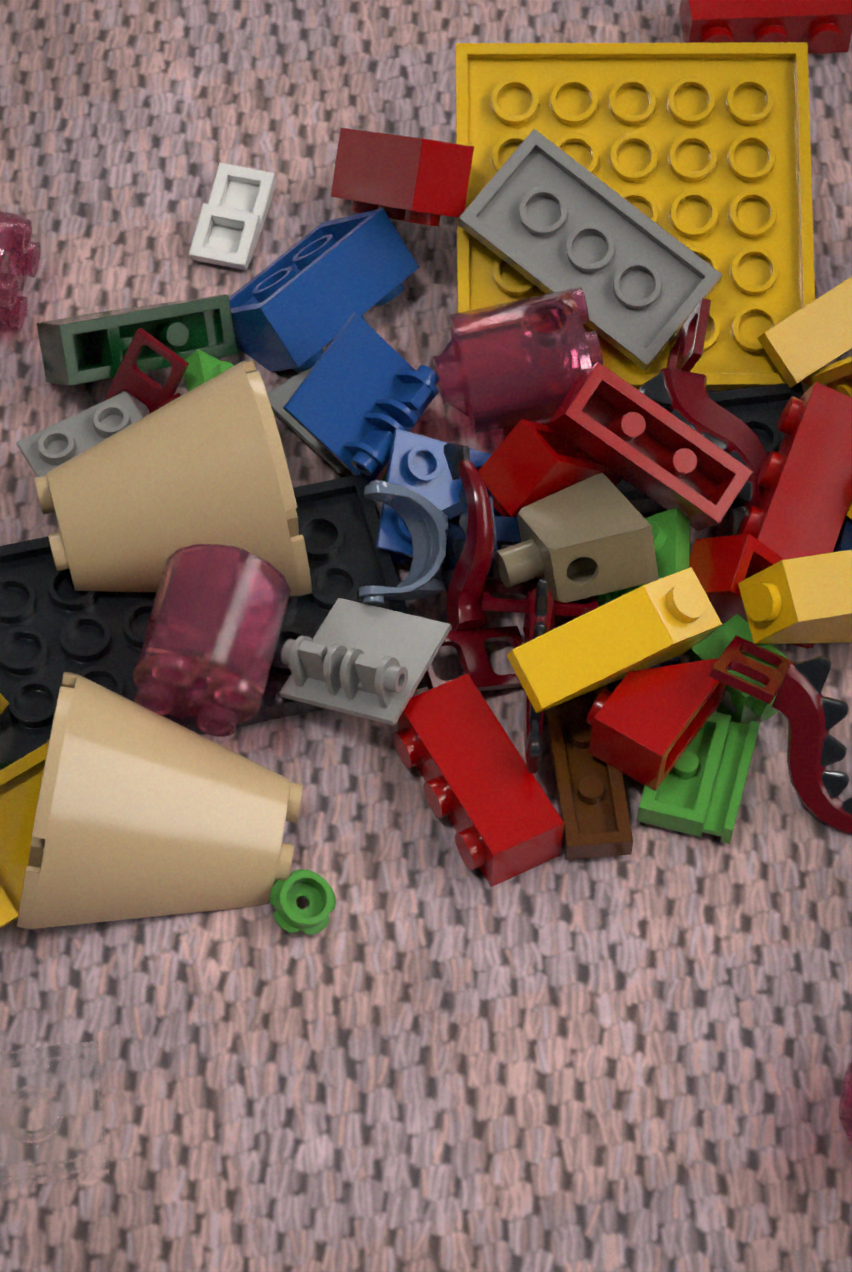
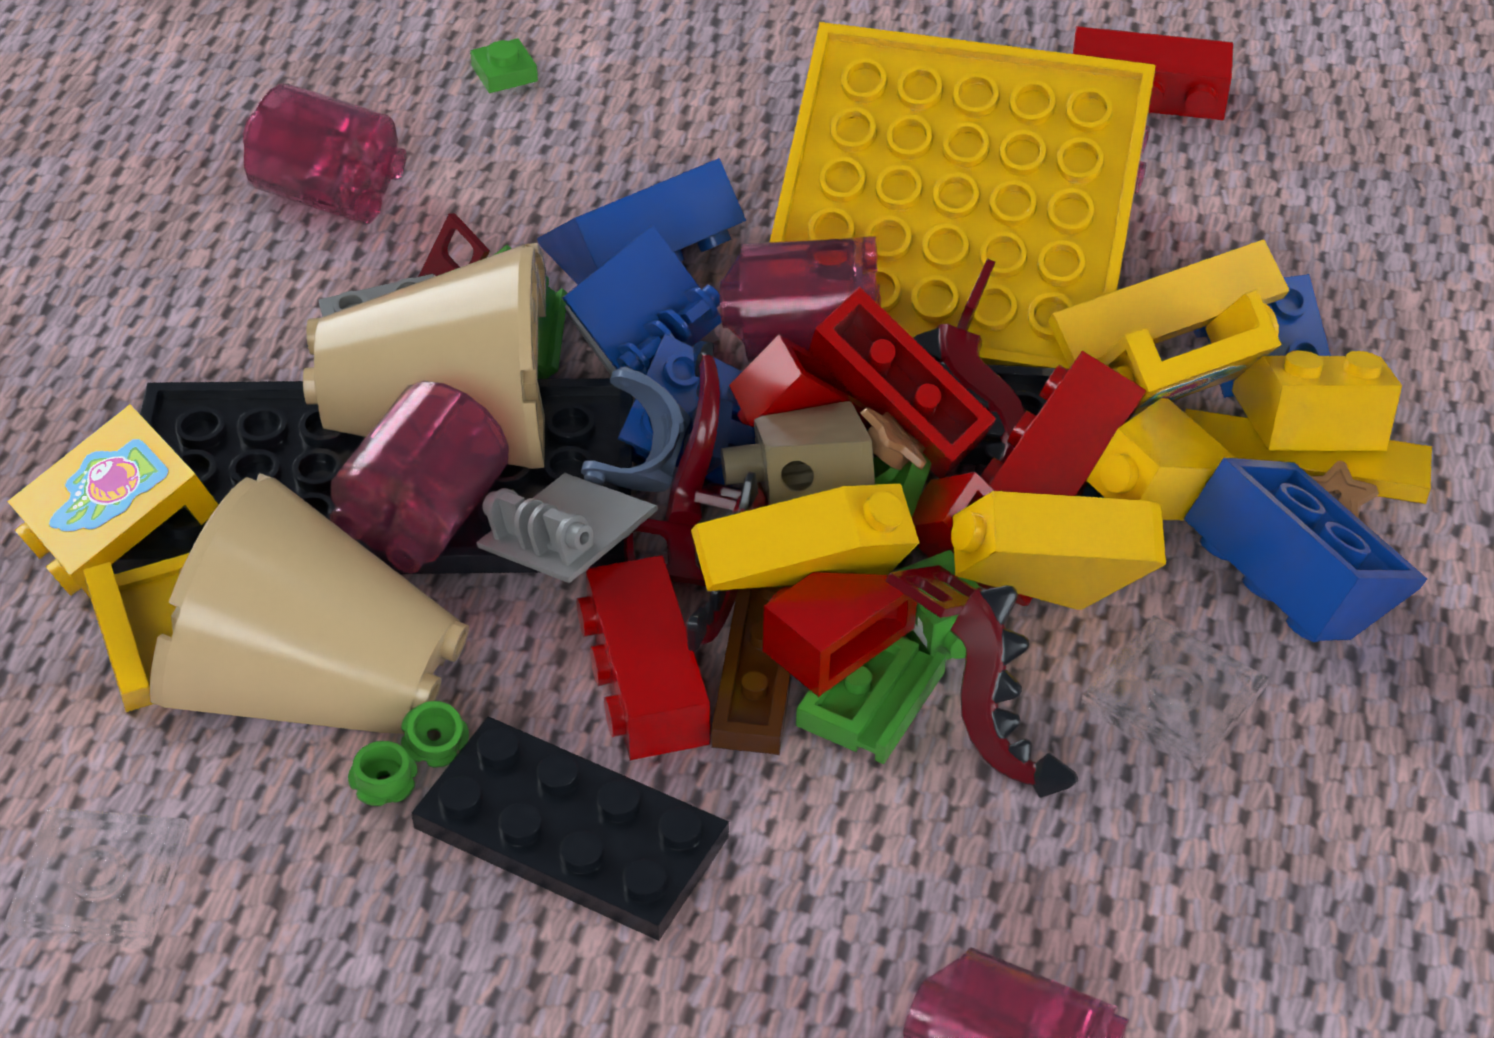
camera: 15 degrees right, 10 degrees down
(95, 110) = (503, 65): none -> bright green plate
(95, 343) = (408, 231): dark green slope -> none
(233, 216) = (596, 164): white slope -> none
(266, 938) = (379, 760): none -> bright green plate
(403, 175) = (750, 133): red brick -> none
(461, 968) = (572, 827): none -> black plate
(576, 232) = (929, 235): light grey plate -> none
(661, 512) = (892, 442): none -> medium nougat plate

